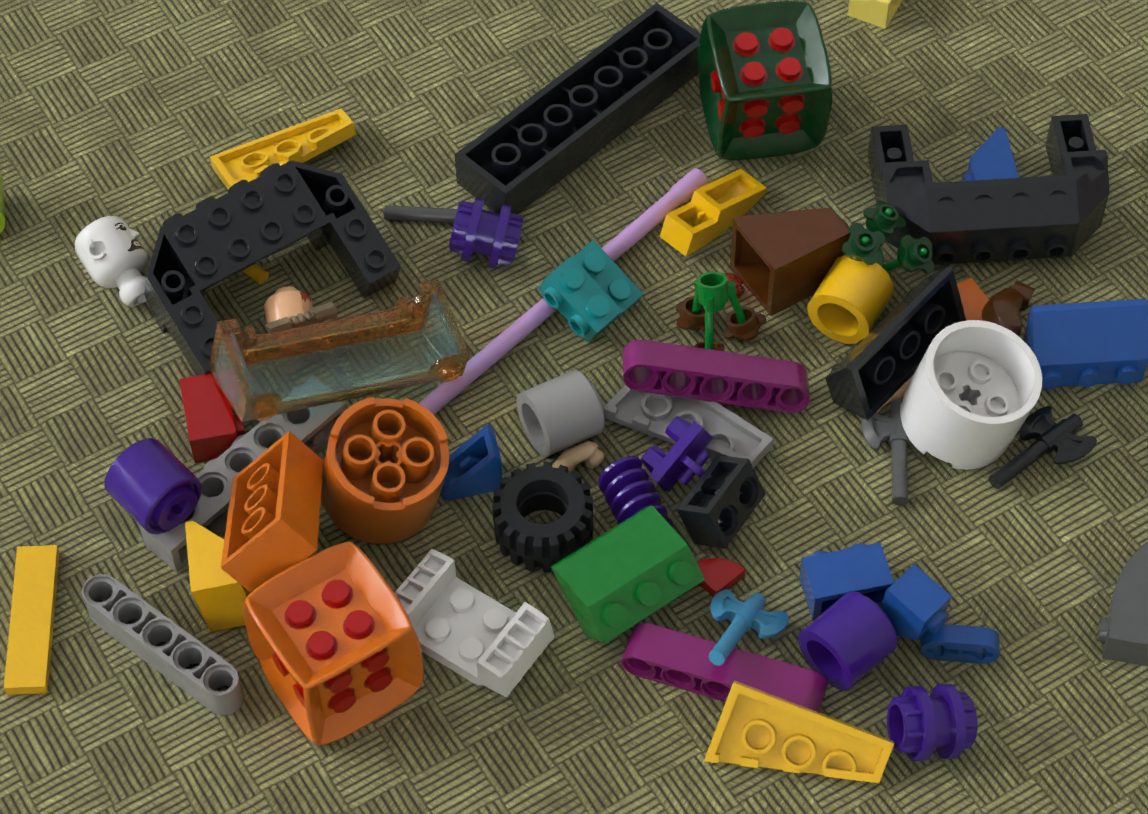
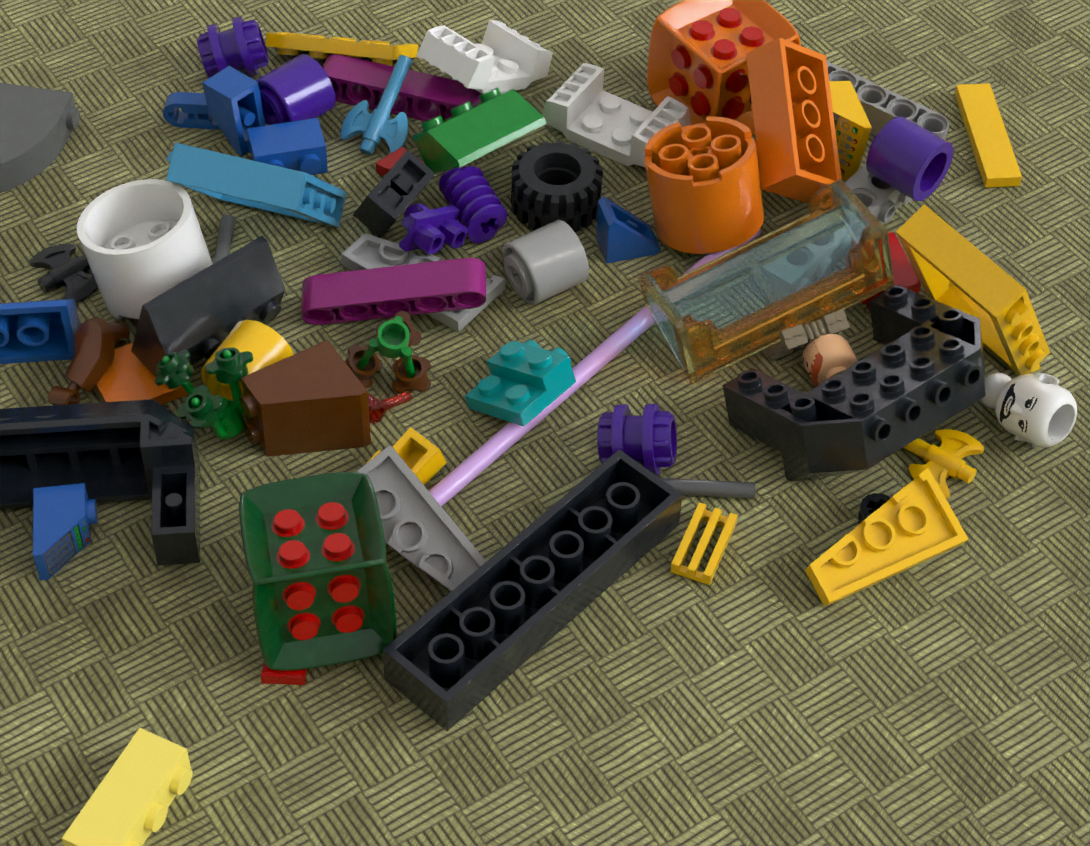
camera: 175 degrees right, 5 degrees down
(150, 390) = (970, 281): none -> yellow window
(424, 162) = (714, 519): none -> yellow tile
(621, 688) = (500, 61): none -> white plate
(688, 156) = (418, 524): none -> light grey wing
(937, 455) = (256, 184): none -> dark azure window

